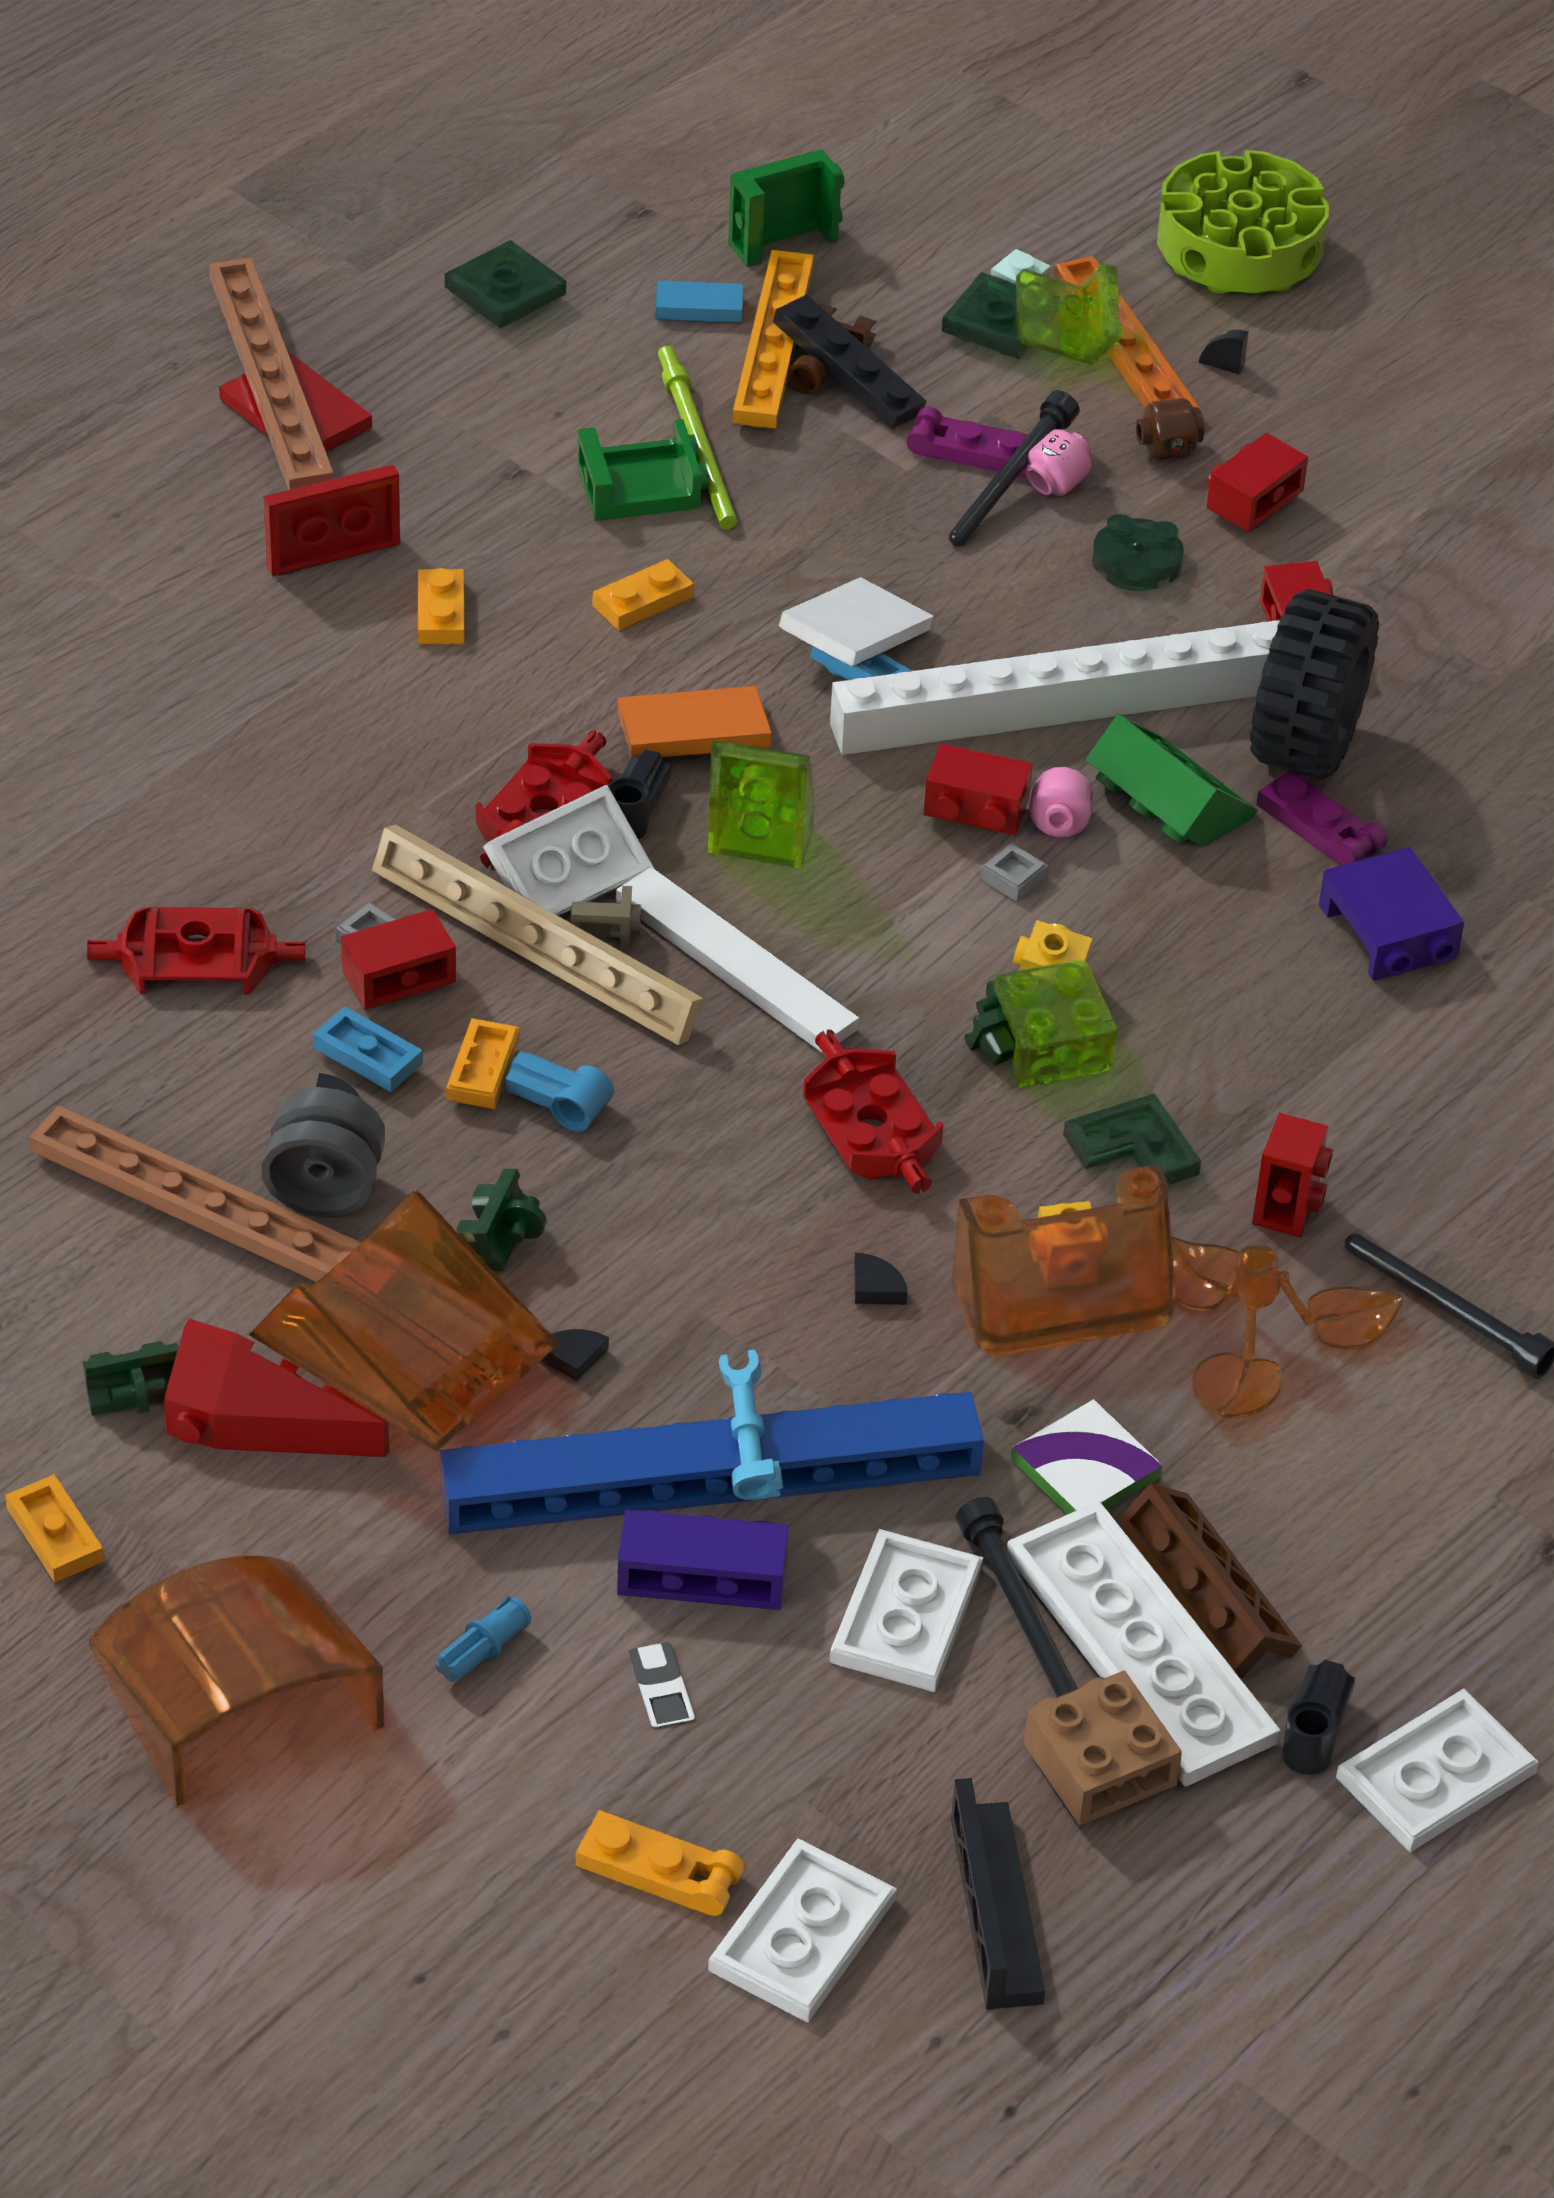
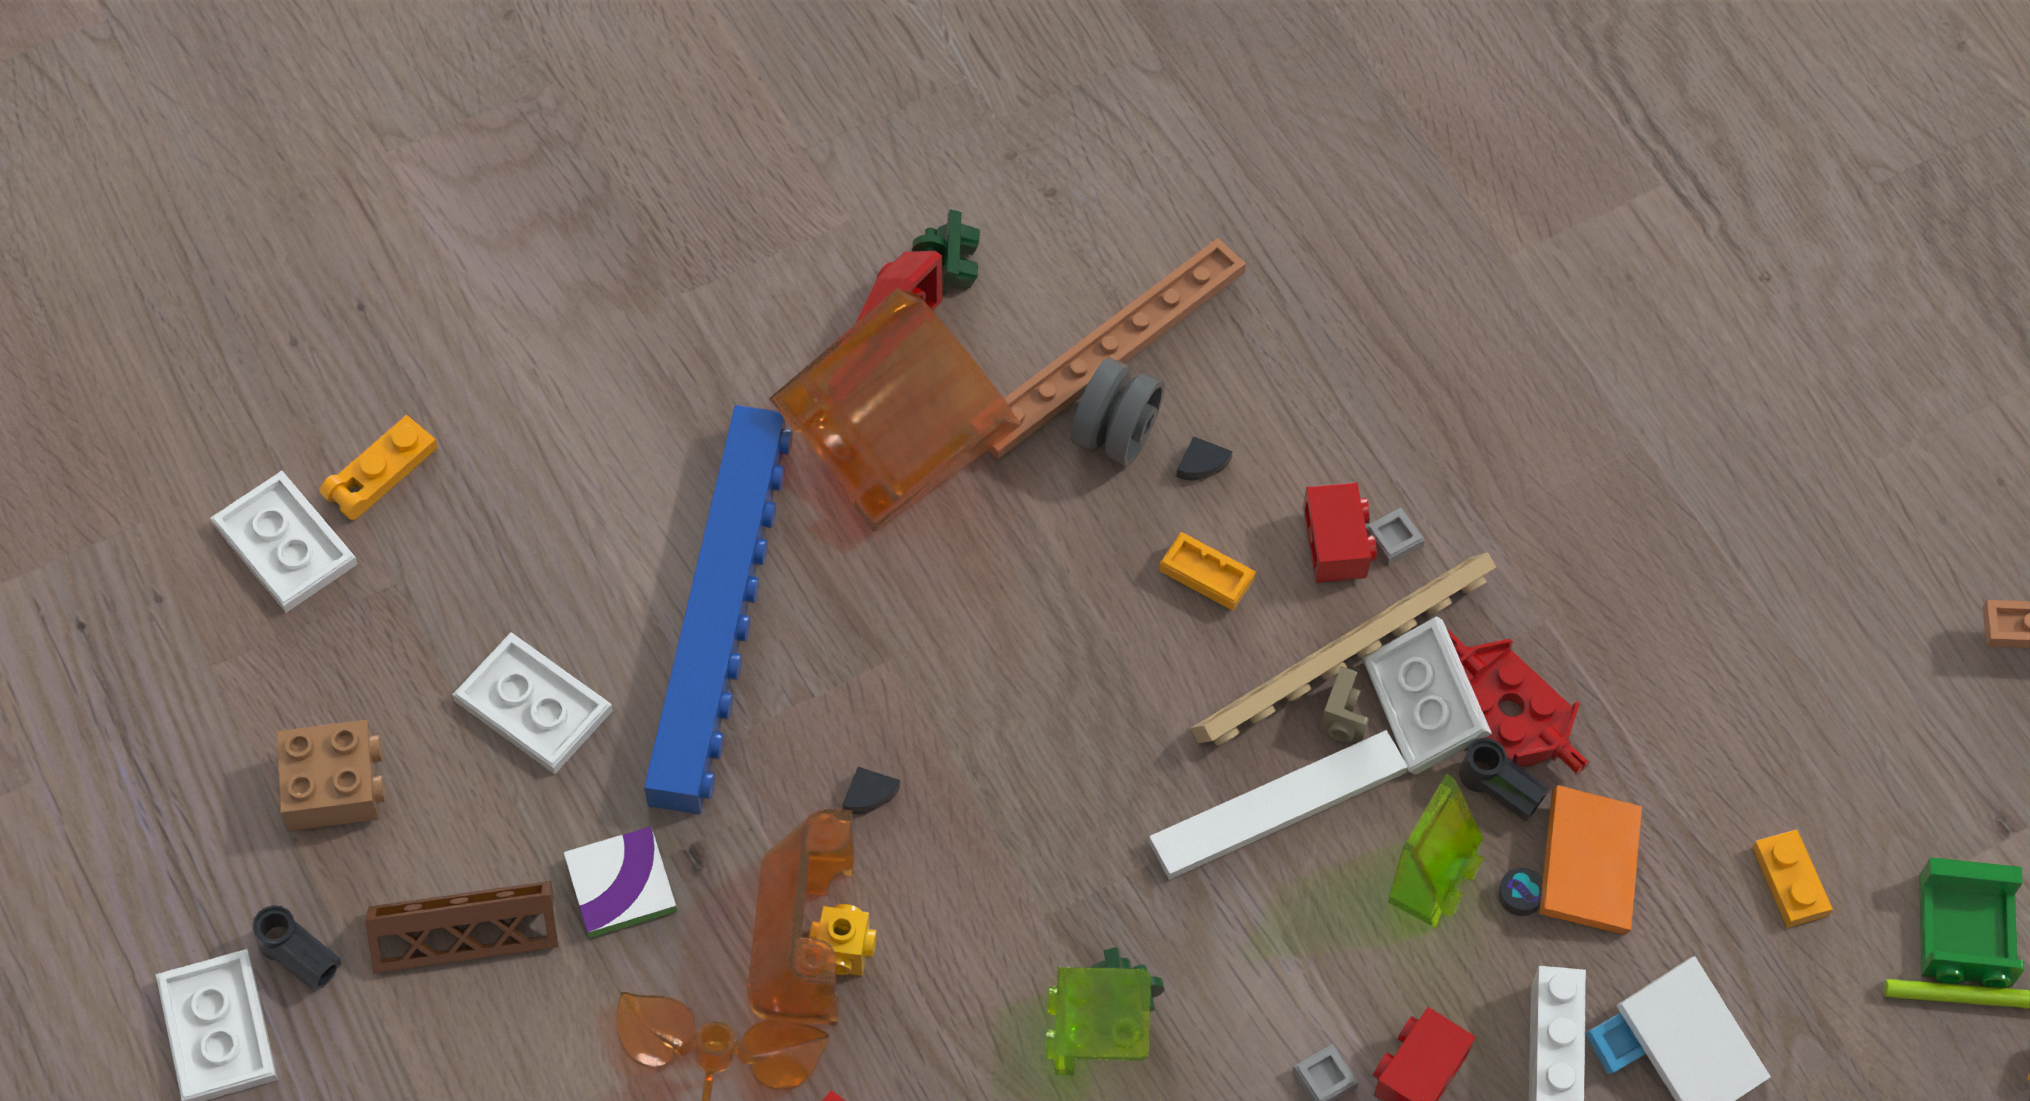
camera: 110 degrees right, 15 degrees up
(54, 1528) = (828, 177): light orange plate -> none
(220, 1643) = (646, 250): clear orange windscreen -> none
(234, 948) = (1402, 431): red plate -> none
(332, 520) = (1920, 621): red tile -> none
(367, 1049) = (1249, 492): dark azure plate -> none
(440, 606) = (1811, 702): light orange plate -> none
(483, 1639) = (618, 411): dark azure axle -> none
(504, 1219) = (1022, 533): dark green hips -> none
(570, 1095) = (1148, 623): dark azure piece -> none
(577, 1351) = (876, 551): black tile -> none
(661, 1684) = (540, 521): sticker -> none
(702, 1559) = (627, 570): dark purple brick -> none
(754, 1477) = (667, 607): medium azure piece -> none
(865, 1086) = (1081, 828): red plate -> none
(982, 1524) = (580, 777): black piece -> none
(996, 1901) = (243, 663): black fence -> none
(1050, 946) = (1179, 1048): yellow brick -> none
(1133, 1129) = (957, 1058): clear green plate -> none
(1133, 1623) = (422, 850): white plate -> none

